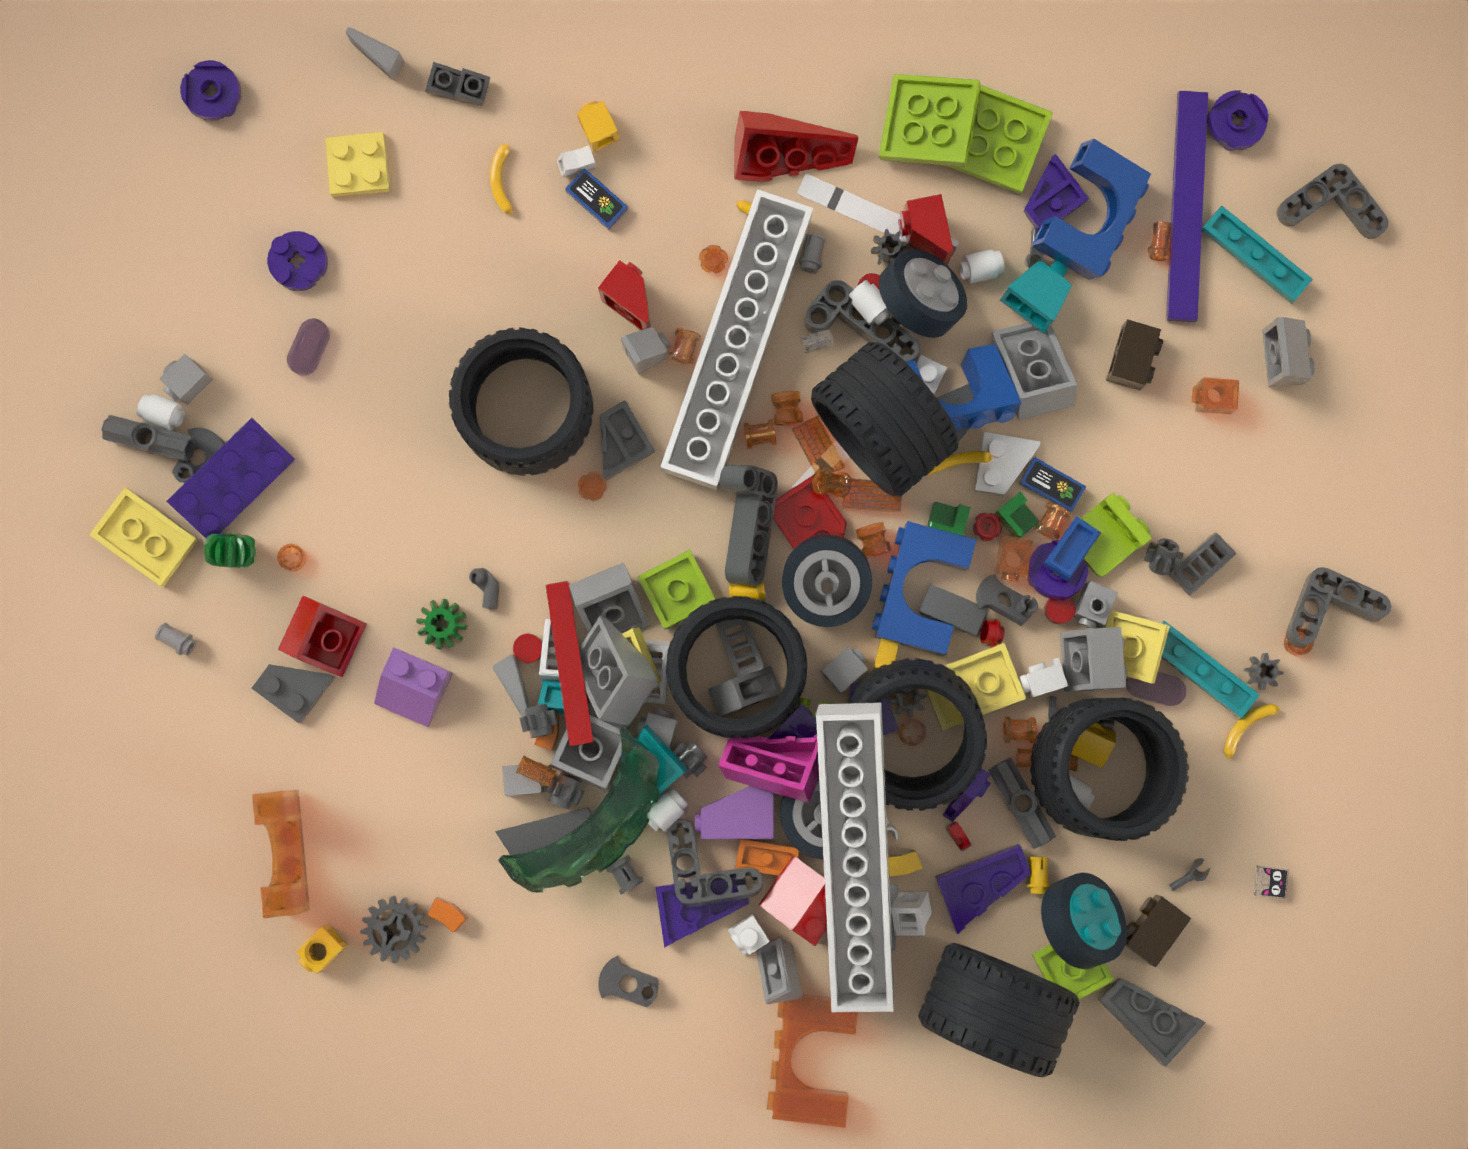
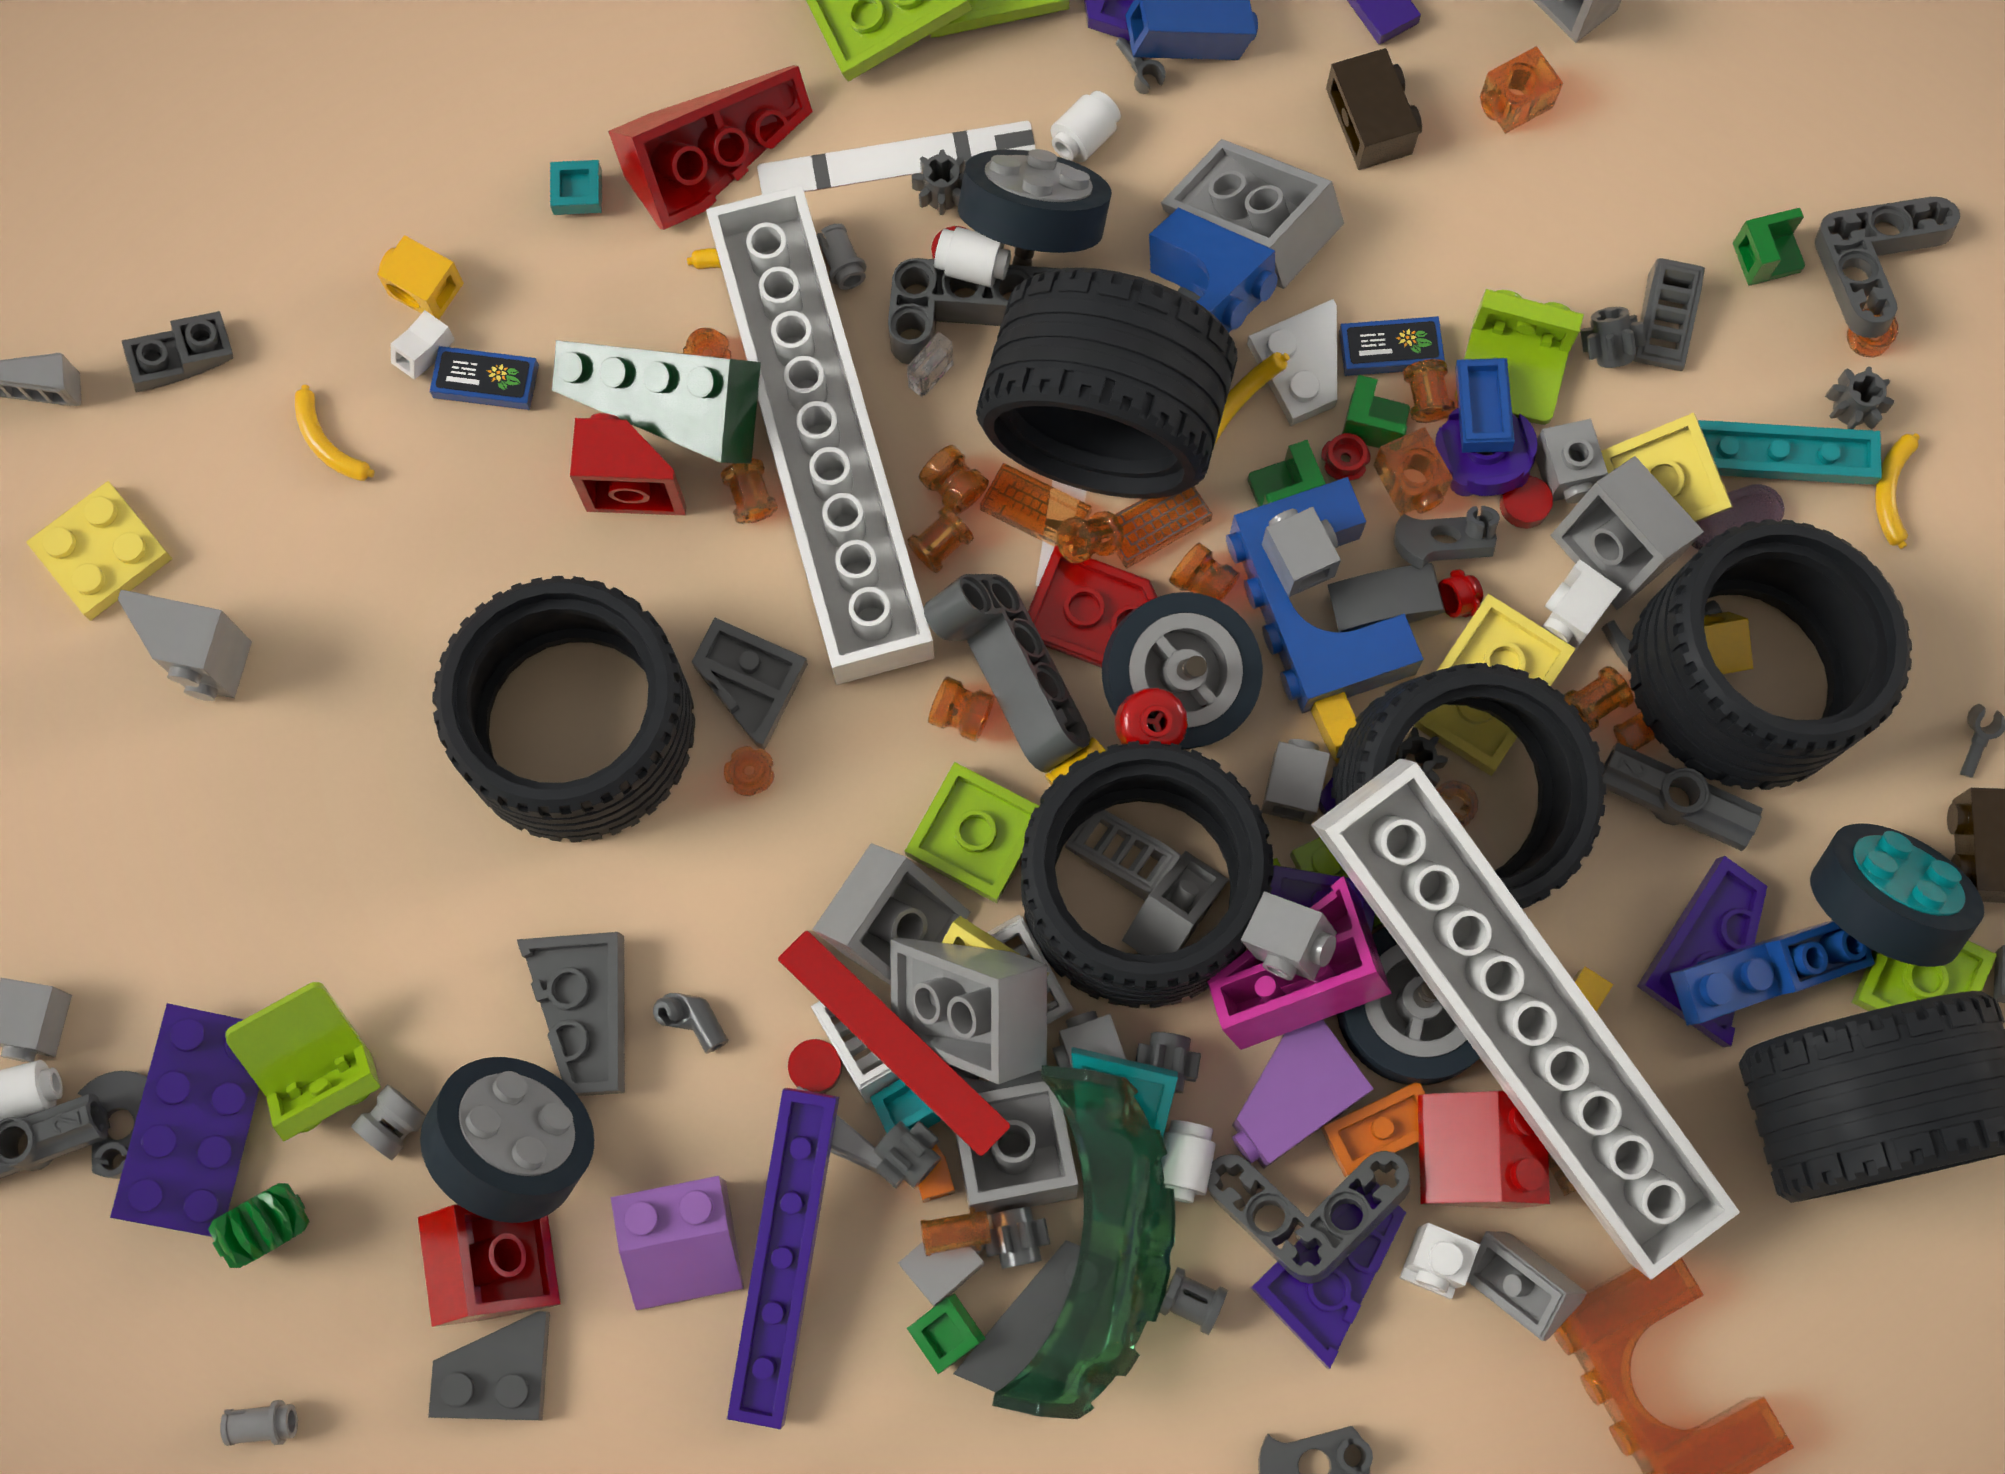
camera: 35 degrees left, 10 degrees down
(143, 537) = (109, 1300): light yellow plate -> none
(285, 248) = (70, 722): dark purple plate -> none
(295, 566) = (351, 1166): clear orange bush -> none
(297, 487) = (304, 1059): none -> lime bracket
(308, 347) = (190, 851): clear purple tile -> none
(318, 541) = (396, 1111): none -> light grey wheel
(364, 589) = (507, 1139): none -> wheel
(369, 250) = (190, 642): none -> light grey slope
(441, 546) = (583, 1005): none -> dark grey wing
(450, 616) = (651, 1134): green gear -> none
(453, 727) = (783, 1258): none -> dark purple plate
(504, 811) = (946, 1333): none -> green plate
(645, 348) = (694, 529): light grey slope -> none
(674, 272) = (677, 396): none -> wedge
(706, 127) = (575, 187): none -> teal plate
(716, 530) = (961, 709): none -> clear orange wheel
(775, 747) = (1289, 938): none -> light grey brick
(792, 588) = (1133, 712): none -> red head
(911, 913) = (1653, 1055): white brick -> none
(924, 561) = (1301, 549): none -> light grey brick
(927, 226) = (977, 112): red slope -> none
(958, 836) = (1625, 904): red tile -> none
(976, 789) = (1595, 866): dark purple wing -> none
(994, 911) = (1767, 971): none -> blue slope
(1038, 875) = (1781, 883): yellow pin -> none
(1039, 293) = (1190, 111): teal torso -> none
(1280, 564) = (1769, 247): none -> green panel

